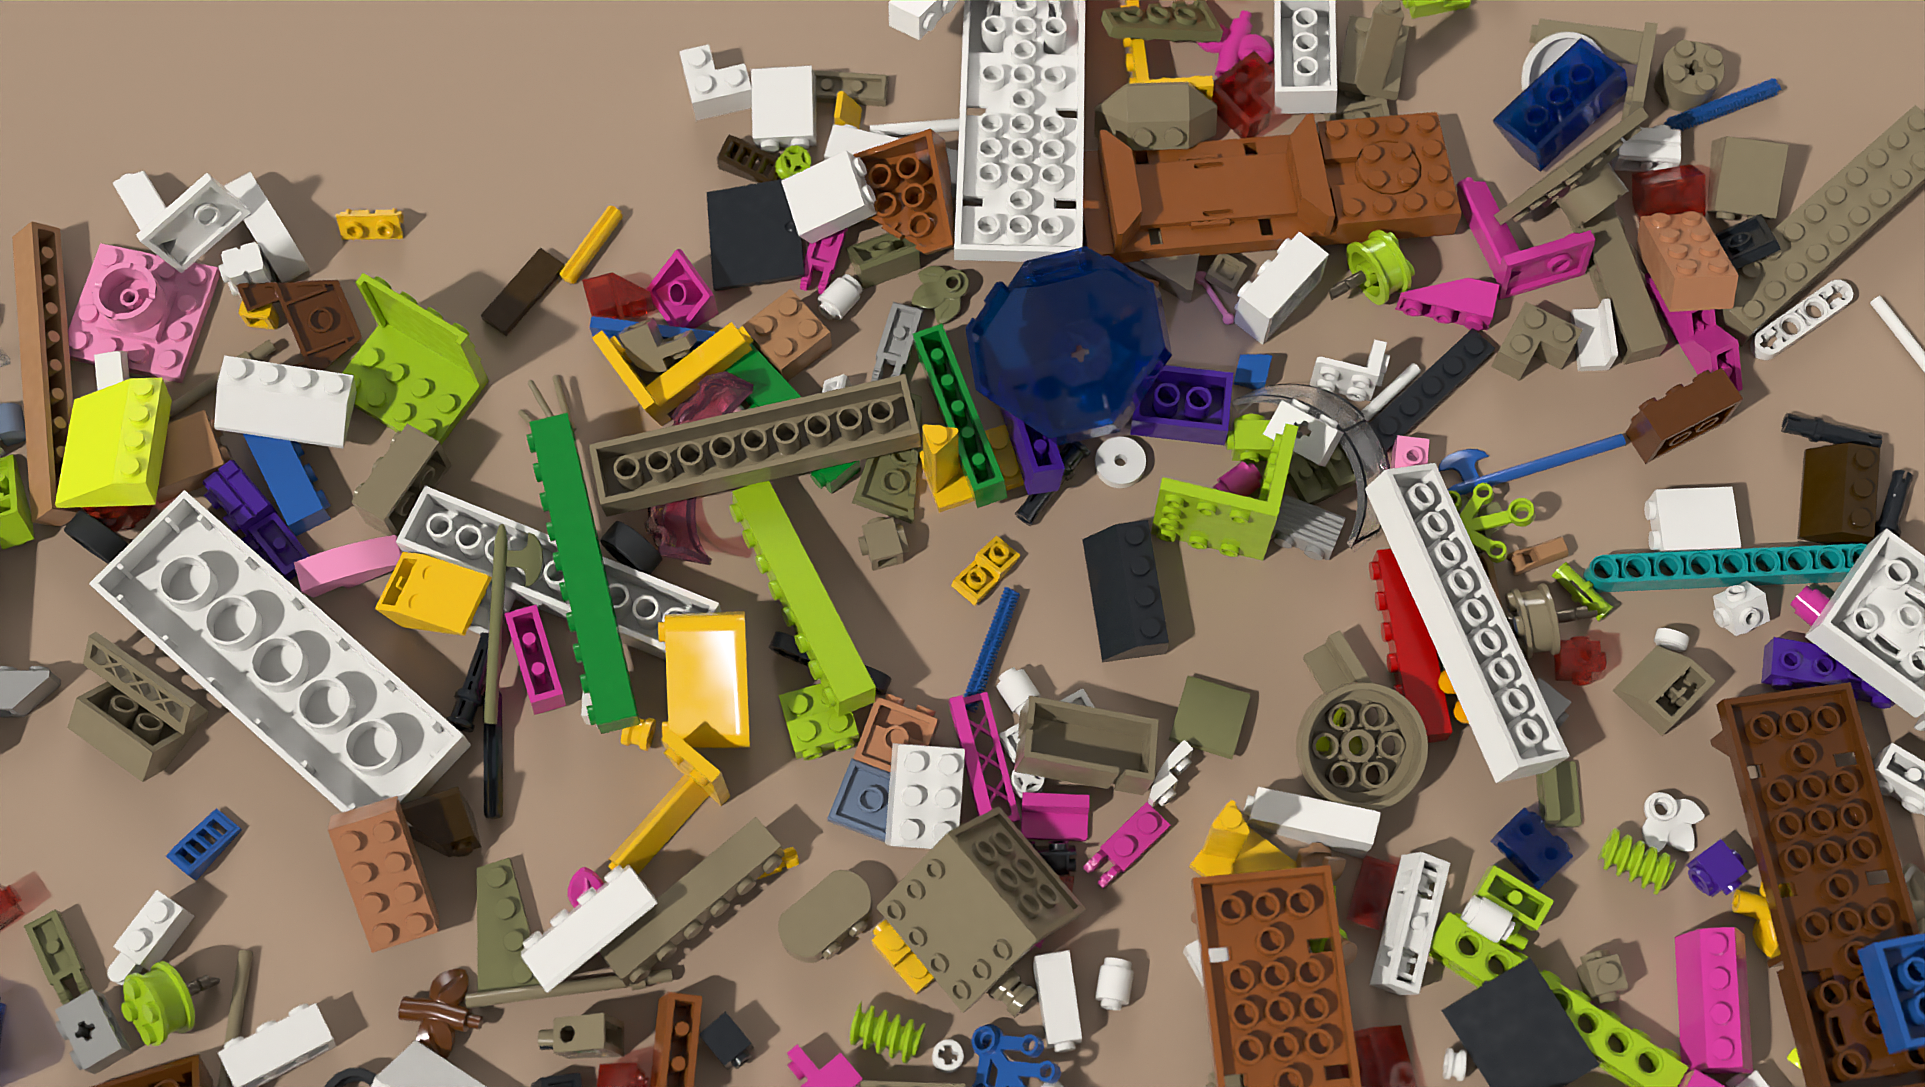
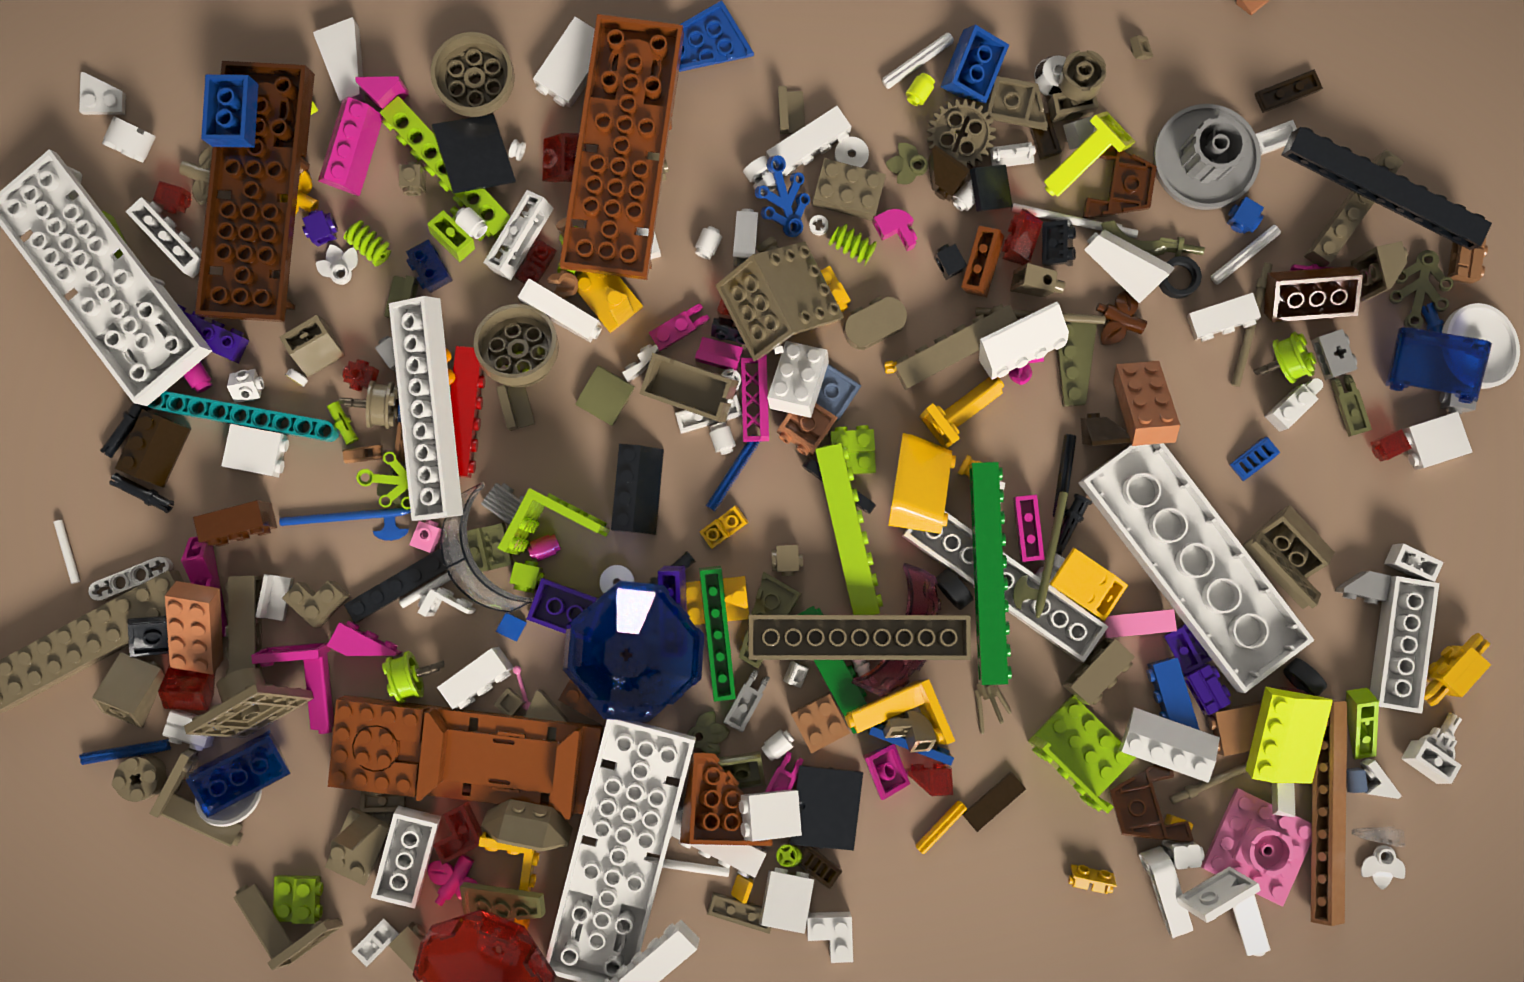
camera: 170 degrees left, 15 degrees up
(1323, 438) = (486, 551): white brick -> none

